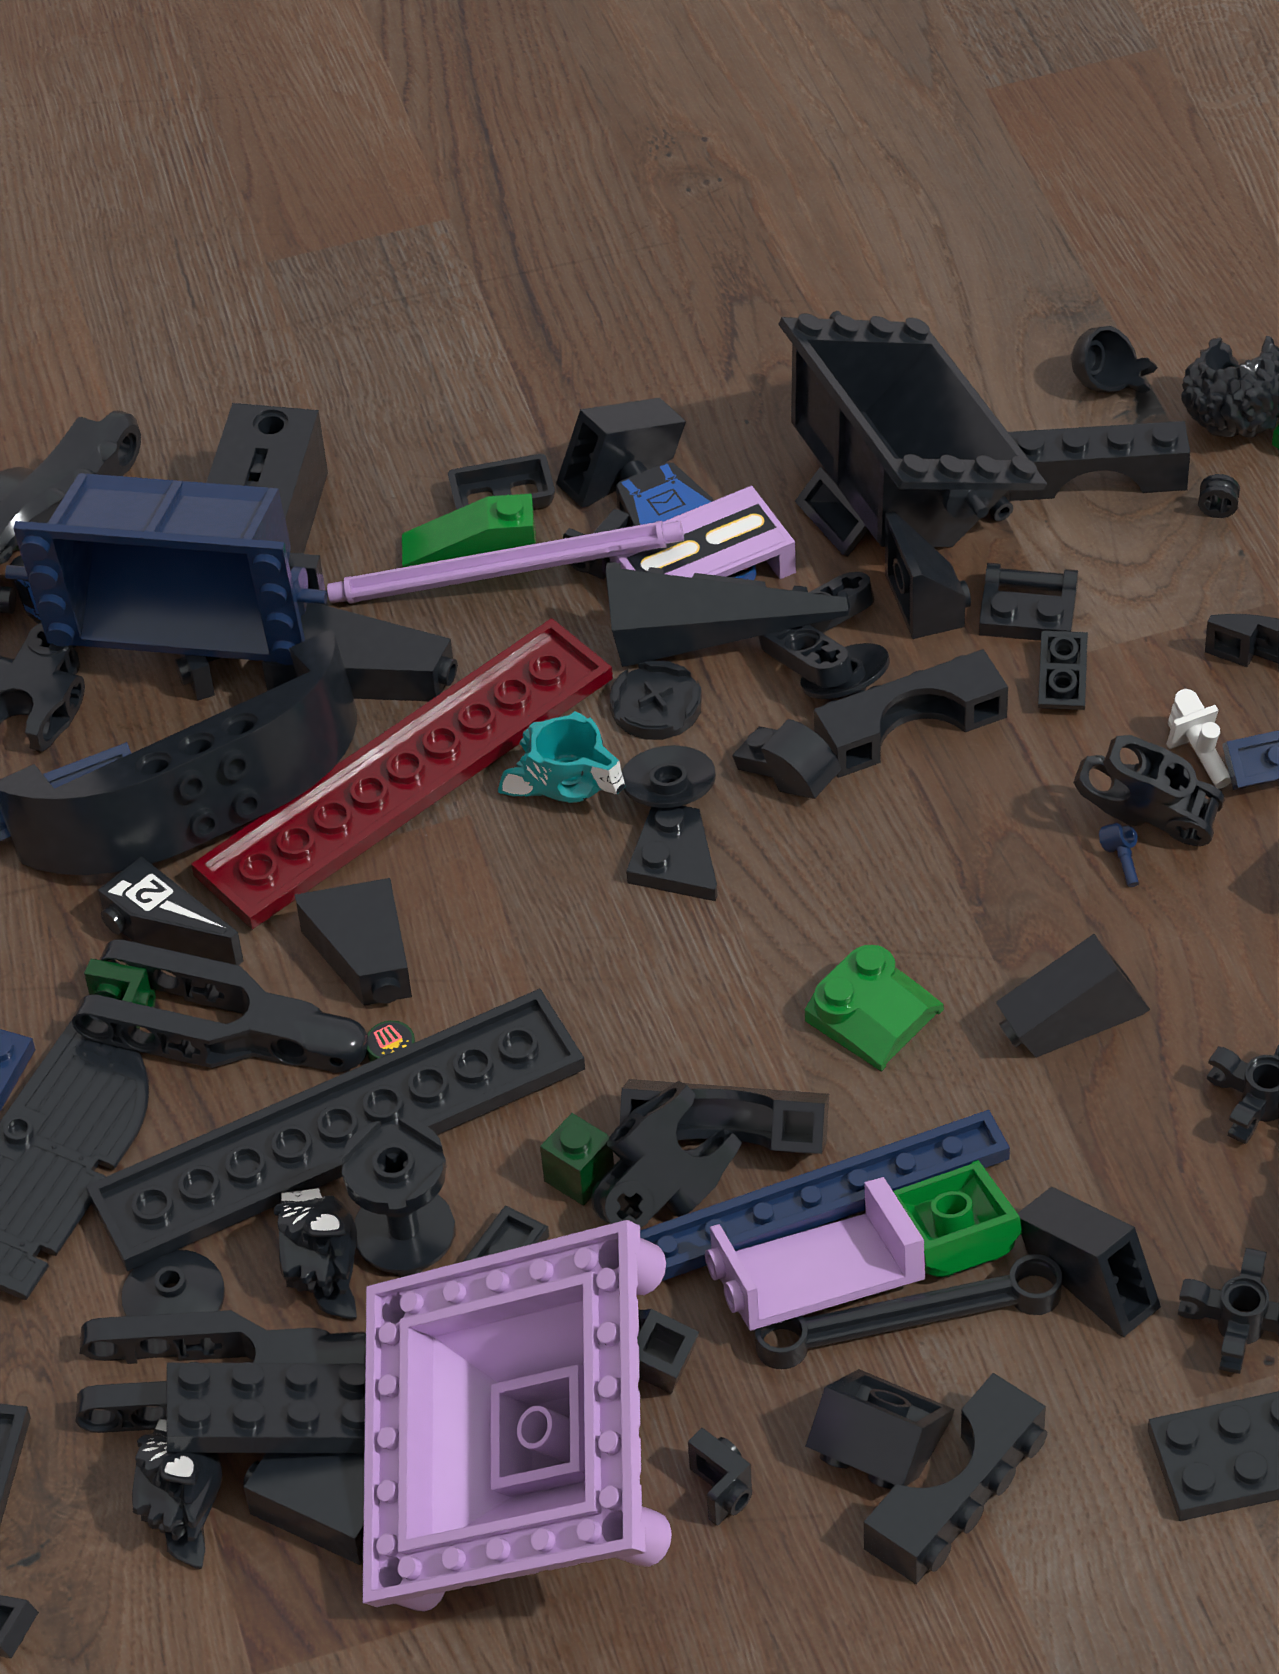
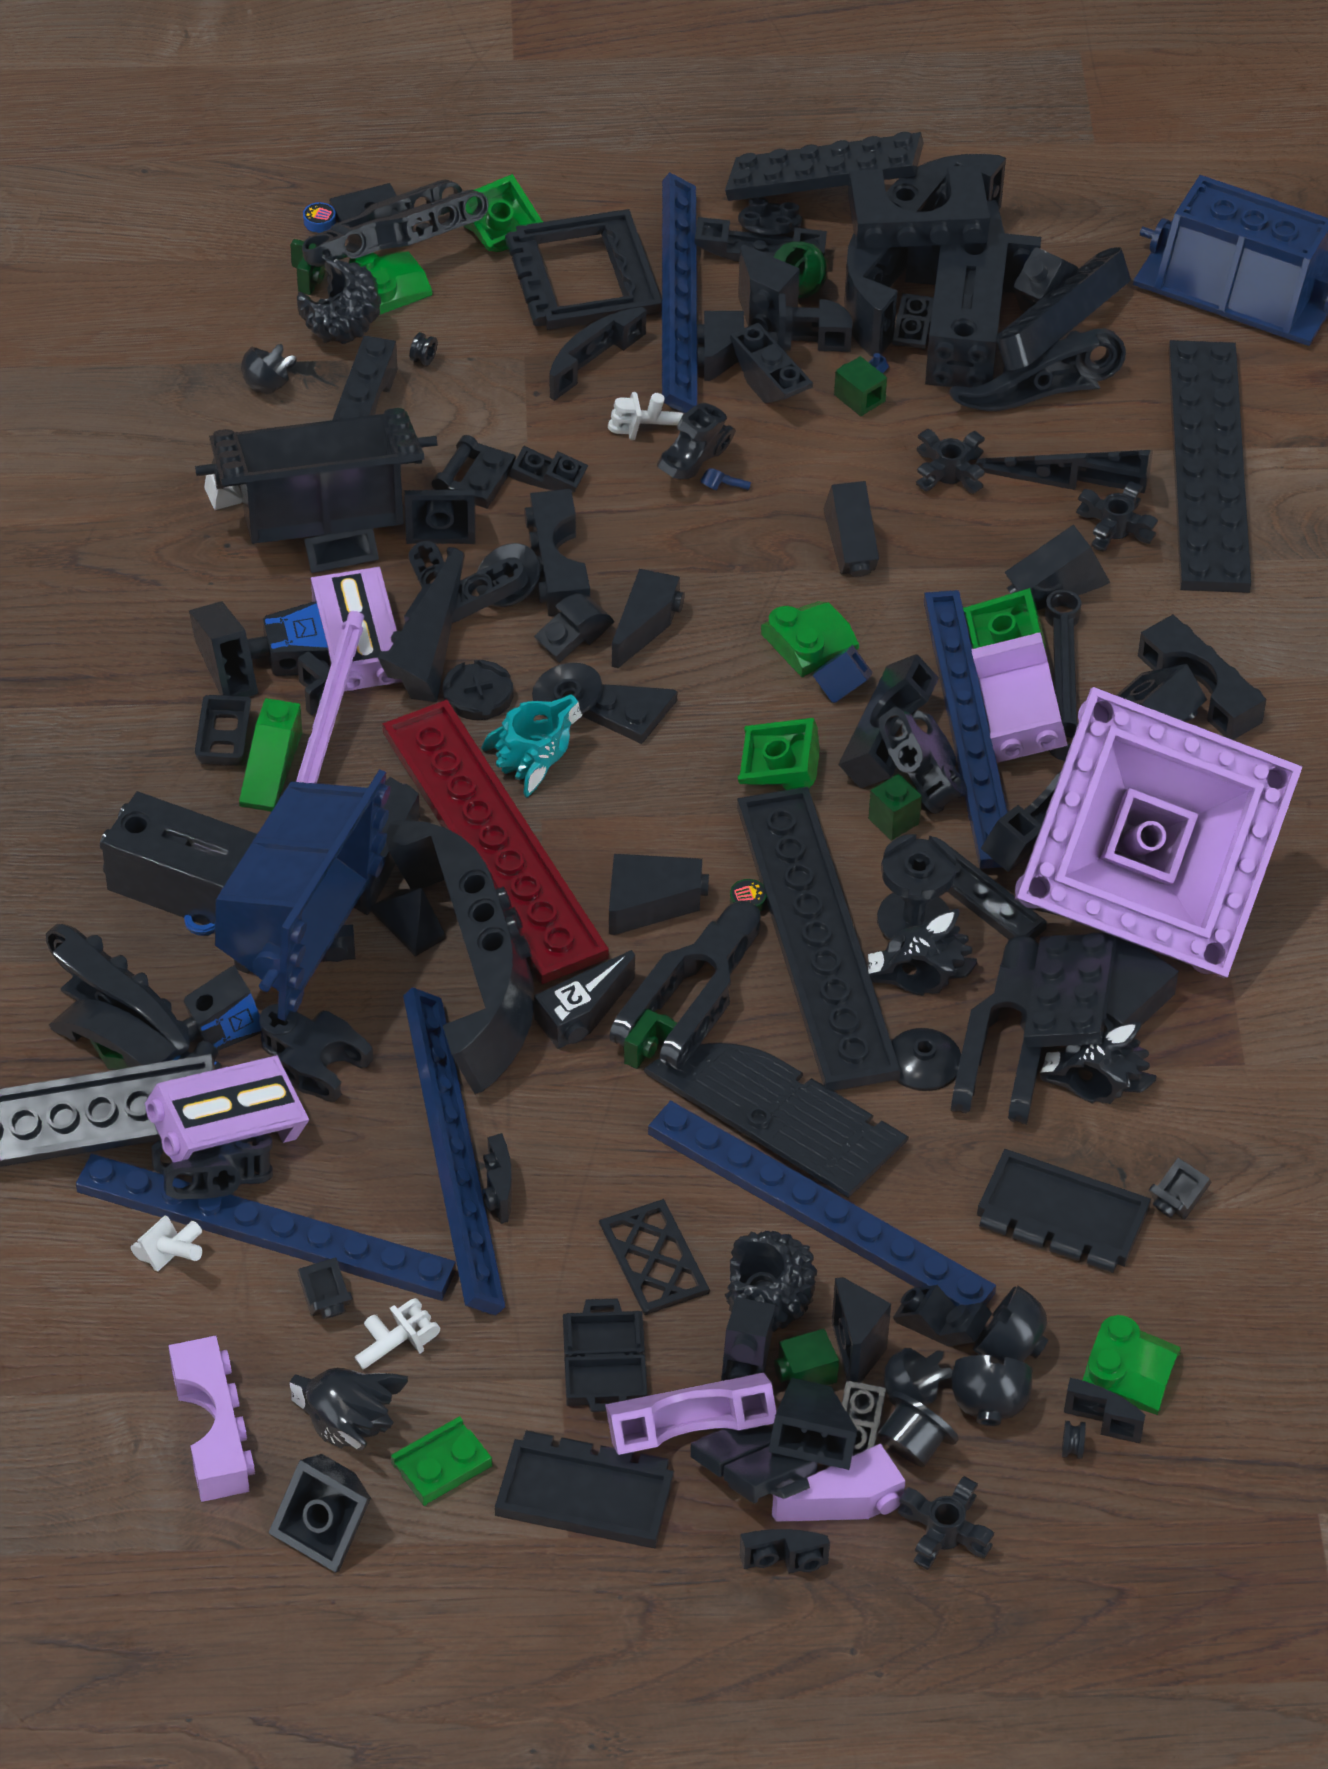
camera: 80 degrees left, 0 degrees up
(630, 1019) = (781, 754): none -> green slope
(807, 1055) = (842, 674): none -> dark blue panel
(831, 822) = (646, 613): none -> black slope

